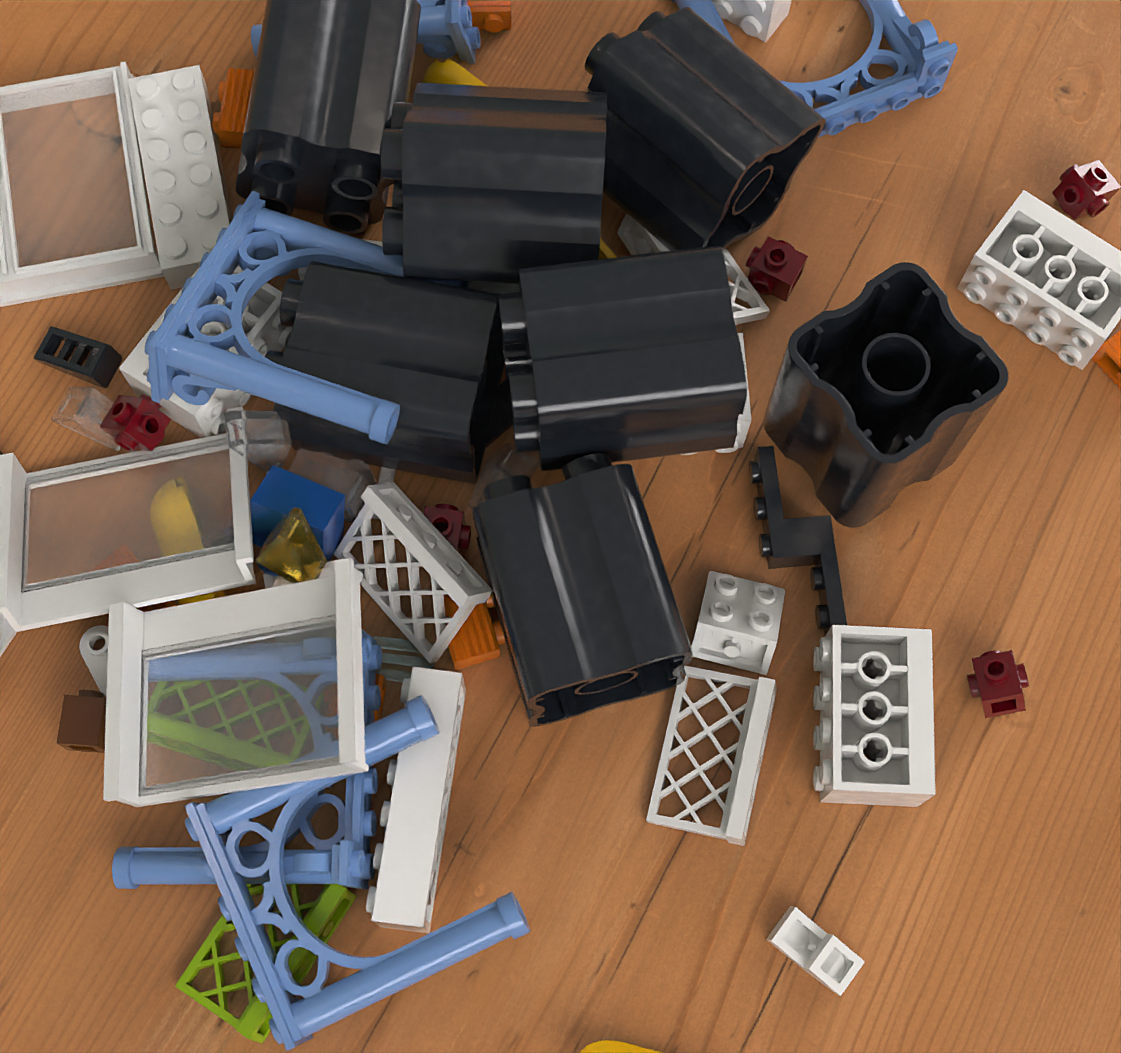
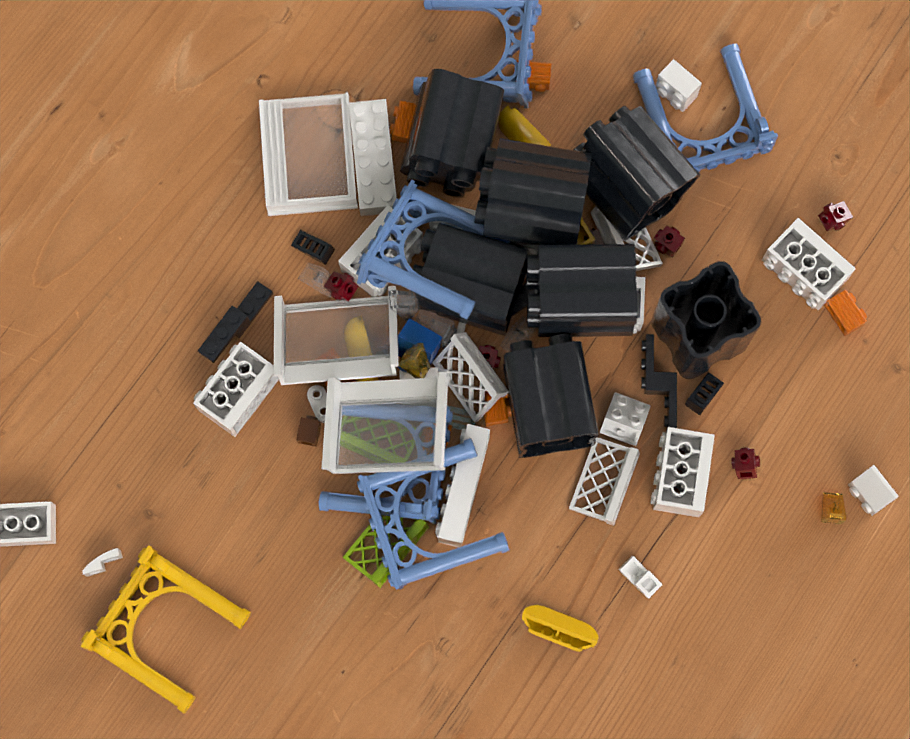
camera: 10 degrees right, 5 degrees up
(878, 575) = (697, 403): none -> black slope

